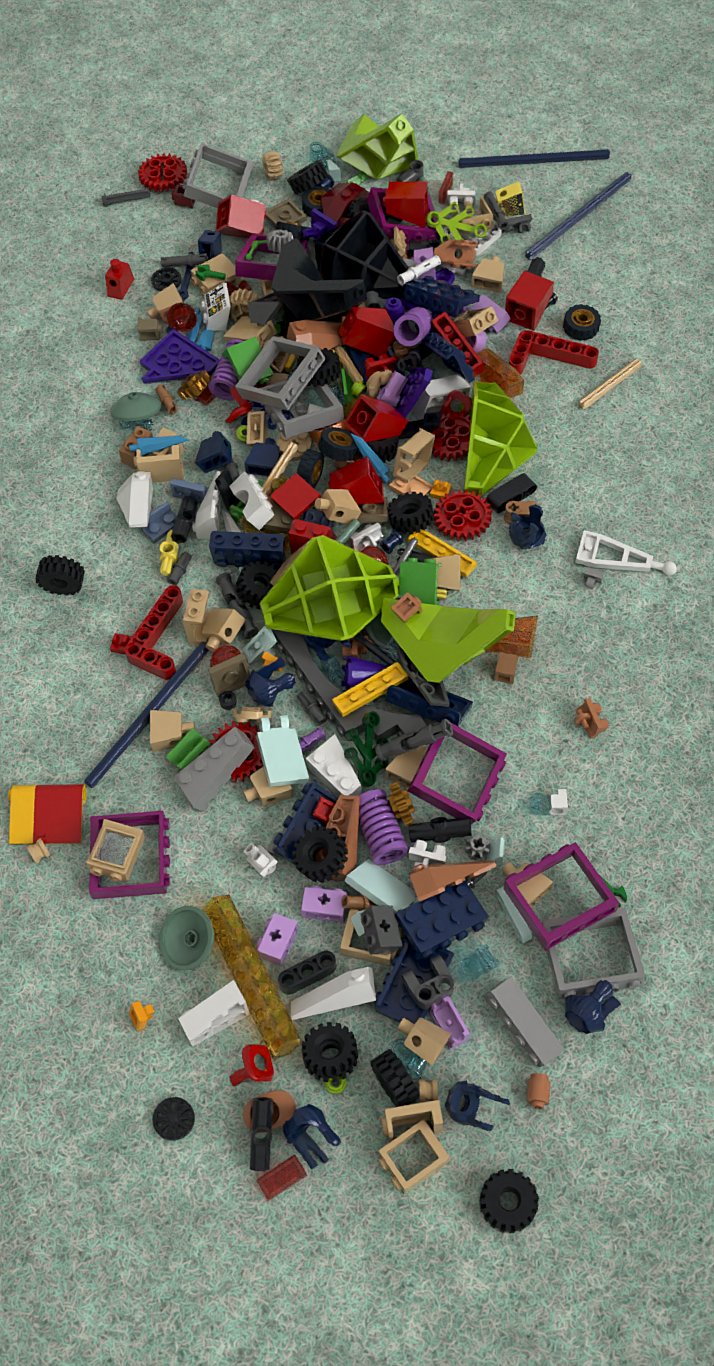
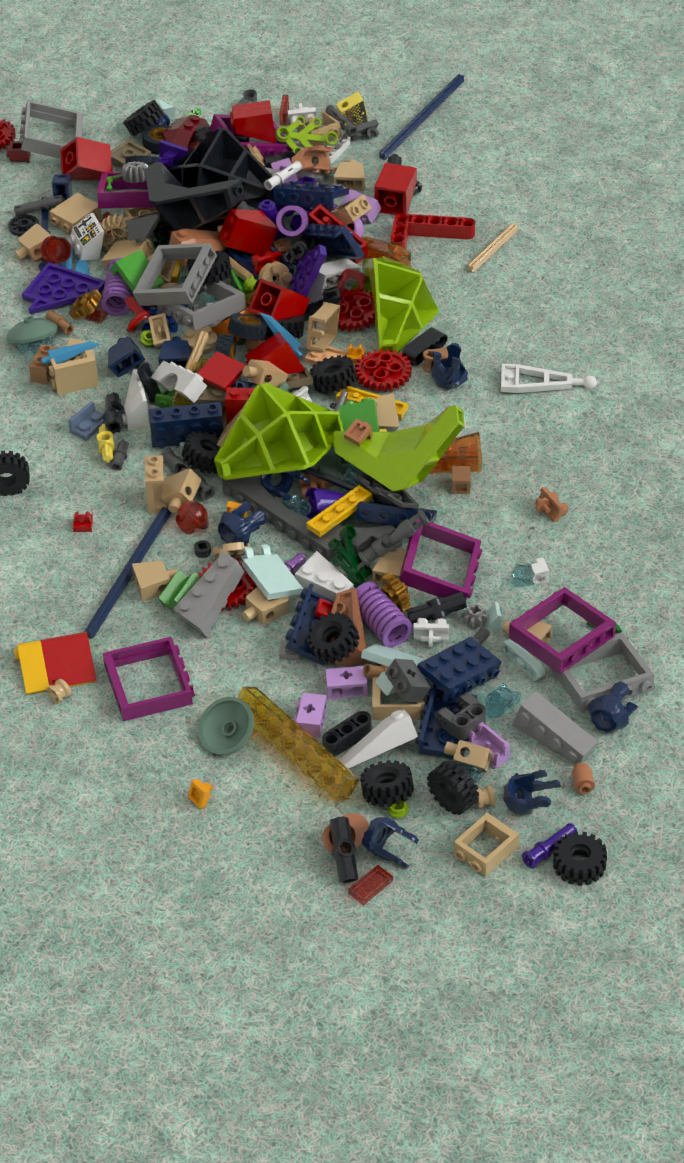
camera: 15 degrees left, 15 degrees down
(115, 851) = (138, 670): tan window -> none
(136, 499) = (59, 402): white wedge -> none
(149, 329) = (22, 267): dark tan window -> none
(152, 633) = (104, 520): red beam -> none
(173, 1118) = (257, 862): black wheel -> none
(183, 488) = (101, 388): sand blue bracket -> none
(204, 272) = (64, 210): green bar -> none
(214, 1014) = (272, 775): white wedge -> none
(229, 674) = (200, 524): dark tan plate -> none
(250, 1069) = (318, 808): red piece -> none
(259, 644) = (218, 501): light aqua slope -> none
(260, 859) = (276, 658): white hips -> none
(272, 165) = (103, 113): tan gear -> none
(312, 708) = (285, 540): dark grey axle -> none
(319, 152) = (144, 95): clear light blue piece -> none
(379, 149) = (214, 83): lime panel -> none
(391, 392) = (287, 274): lavender piece -> none
(391, 542) = (324, 398): dark blue bush -> none
(412, 1114) = (470, 809): tan panel -> none
(433, 878) = (447, 636): nougat wedge -> none
(473, 1177) = (543, 850): none -> dark purple pin
(534, 158) = (363, 75): dark blue axle -> none
(581, 322) = (451, 201): black wheel -> none
(592, 576) = (521, 397): light grey tile -> none

